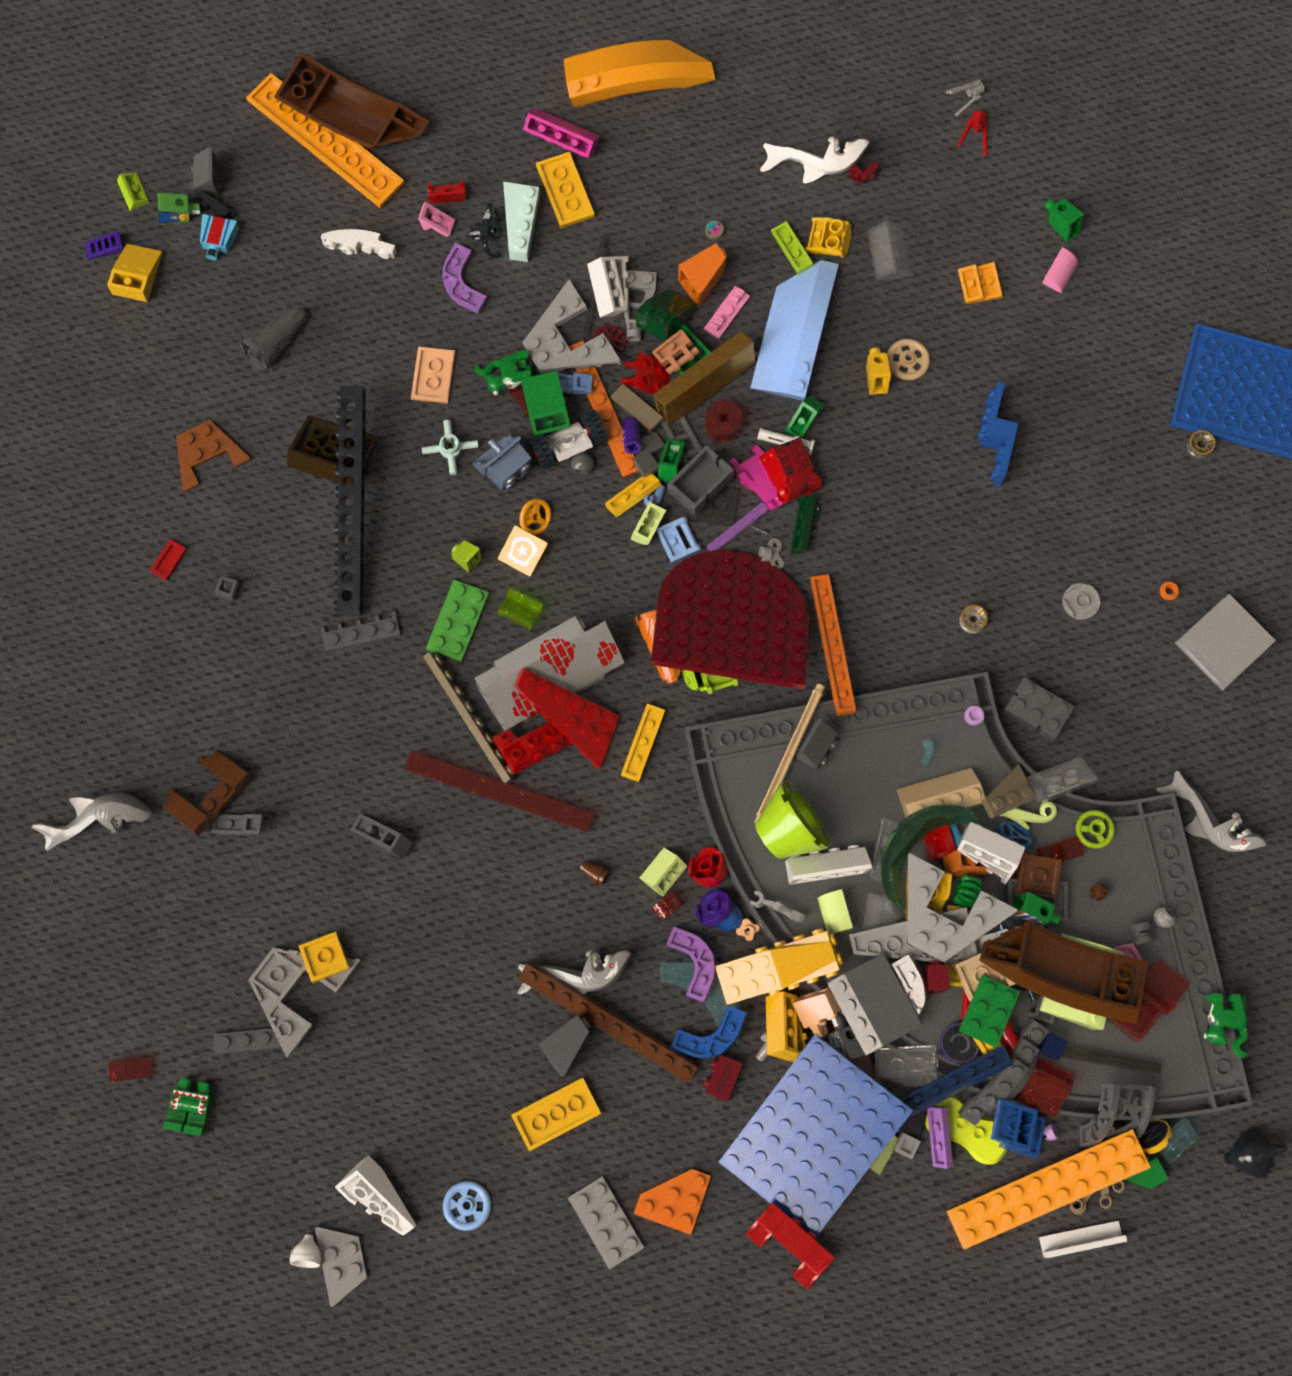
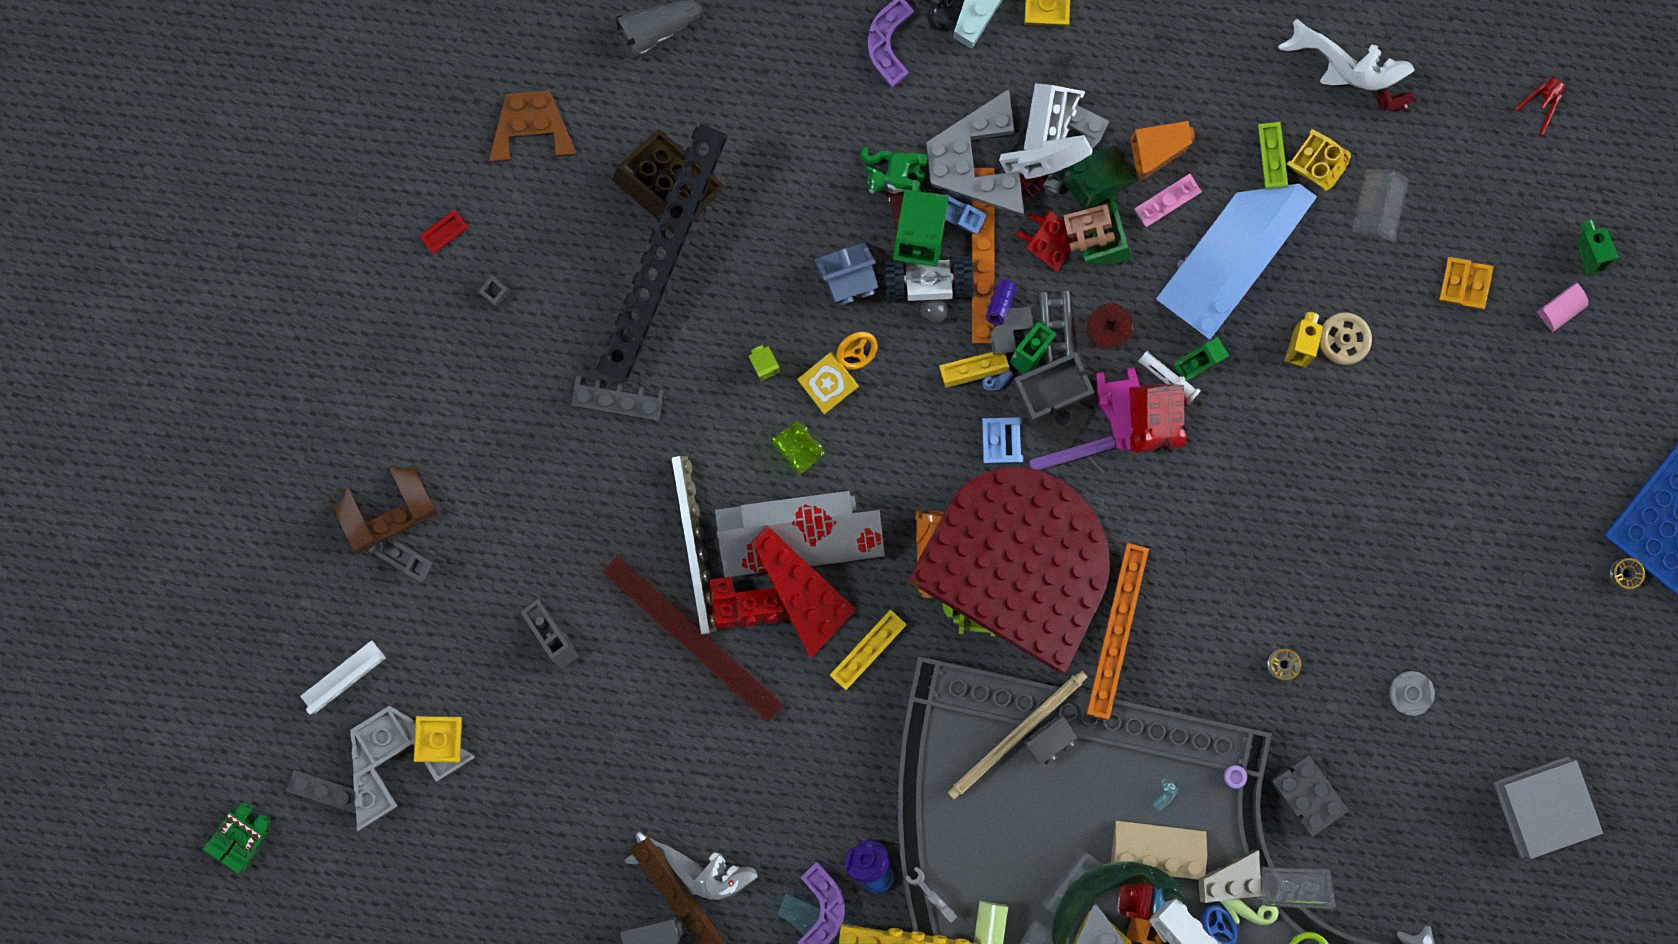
camera: 25 degrees right, 10 degrees up
(107, 809) = (266, 483): light grey piece -> none
(130, 1069) = (194, 770): clear red slope -> none
(225, 942) = (342, 677): none -> white fence
(433, 375) = (813, 138): light nougat tile -> none
(451, 453) = (792, 224): light aqua bar -> none
(457, 621) = (726, 430): bright green plate -> none
(597, 873) = (759, 769): reddish brown cone -> none
(622, 311) = (1050, 158): none -> white slope
(636, 408) = (1020, 271): dark tan tile -> none
(648, 524) = (976, 410): yellowish green brick -> none
(663, 871) = (830, 798): yellowish green brick -> none
(667, 906) = (819, 837): clear red leg -> none
(705, 378) = (1109, 271): pearl gold brick -> none
(708, 868) = (878, 817): red cylinder -> none
(714, 230) = (1195, 97): tile -> none
(746, 923) = (893, 892): light nougat plate -> none
(772, 553) = (1096, 497): light grey piece -> none
(790, 825) = (984, 818): lime cone -> none
(806, 511) = (1154, 467): dark green hinge -> none
(828, 865) = (1005, 874): white slope -> none
(972, 89) = (1562, 49): light grey plant -> none
(997, 434) = (1405, 470): blue bracket -> none
(1175, 591) = (1520, 722): orange plate -> none

